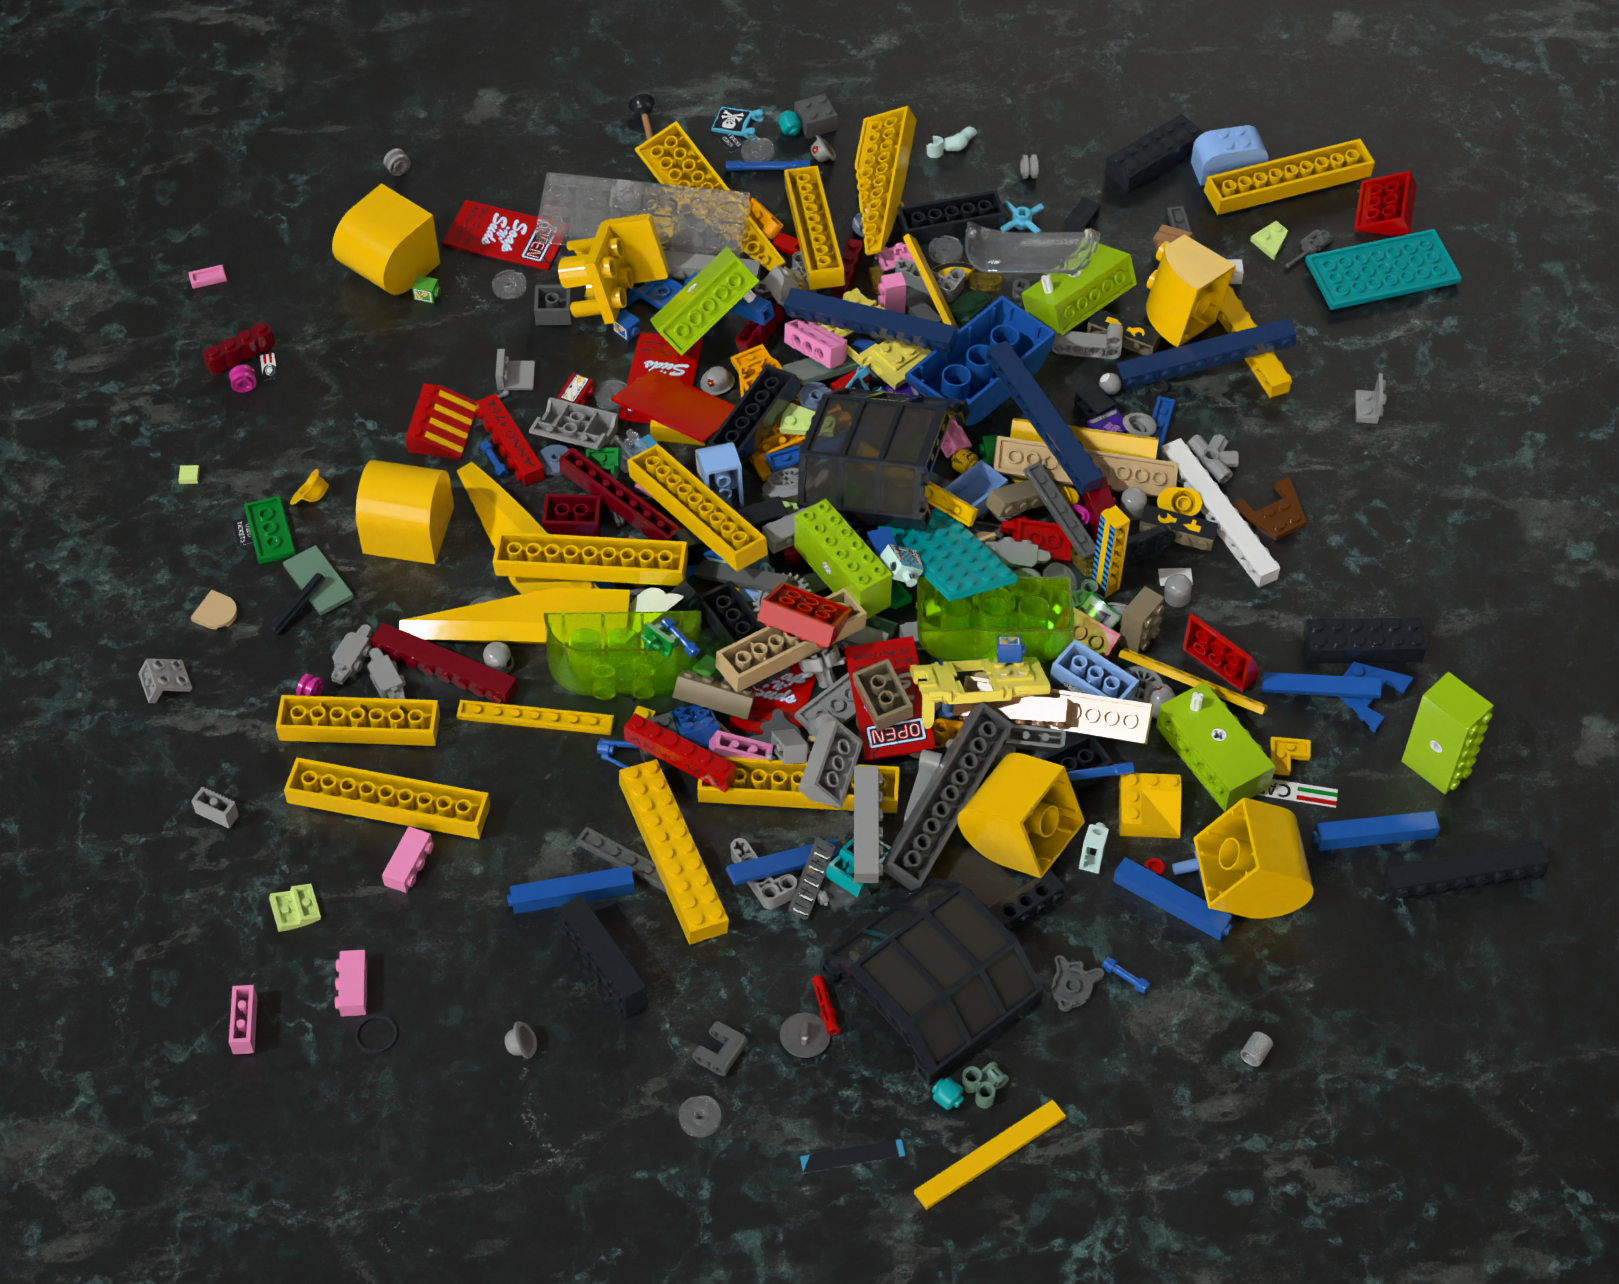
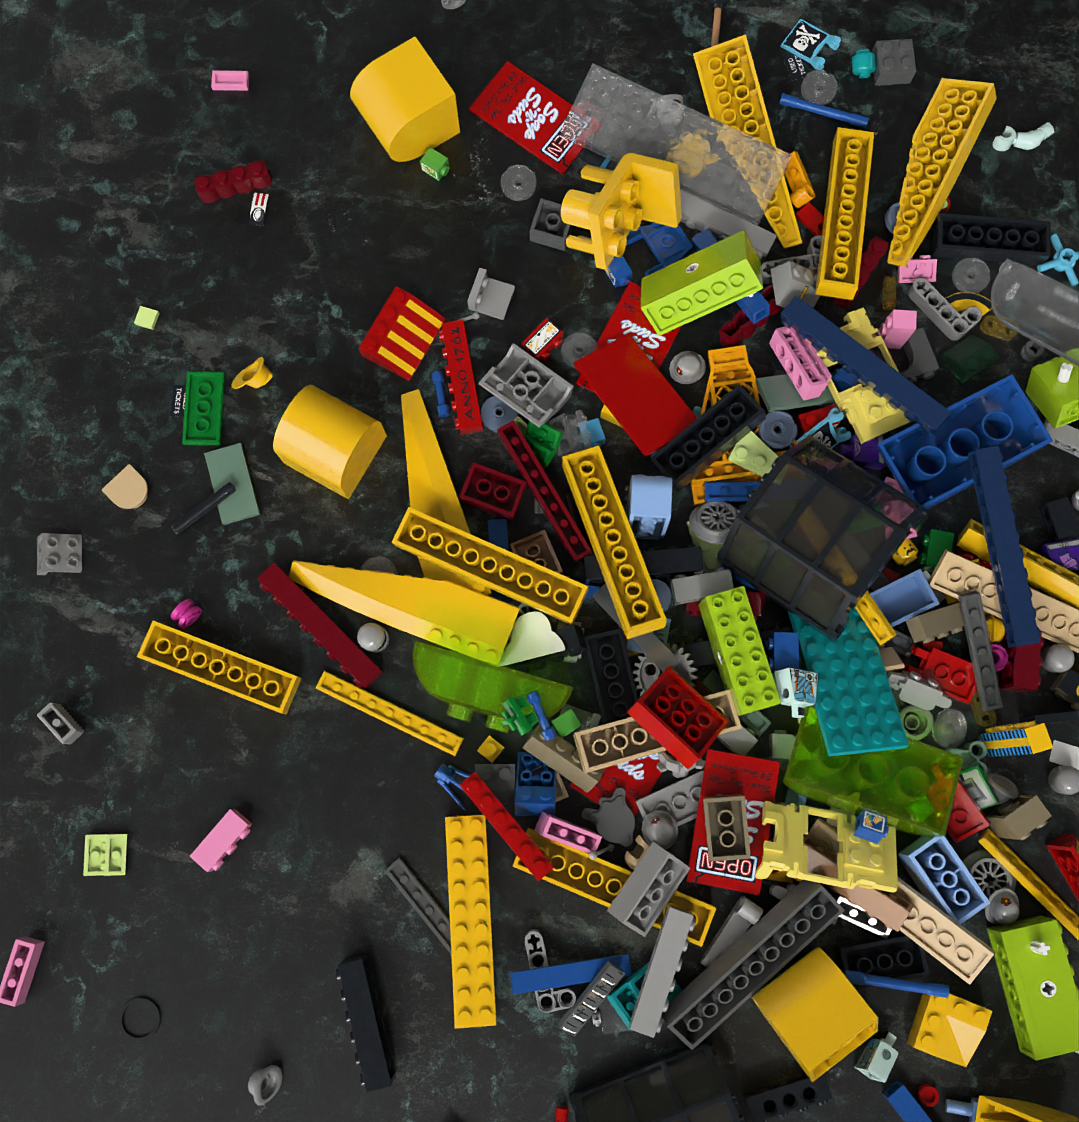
camera: 20 degrees right, 25 degrees up
(242, 378) = (226, 220): dark pink wheel -> none
(351, 654) = (236, 585): light grey hinge -> none
(351, 983) = (131, 961): bright pink brick -> none
(385, 676) = (261, 624): light grey hinge -> none
(387, 798) = (221, 767): yellow brick -> none
(561, 890) = (362, 928): blue brick -> none
(789, 746) = (616, 848): light grey brick -> none
(822, 150) = (886, 109): light grey hat -> none
(929, 280) = (942, 332): yellow tile -> none

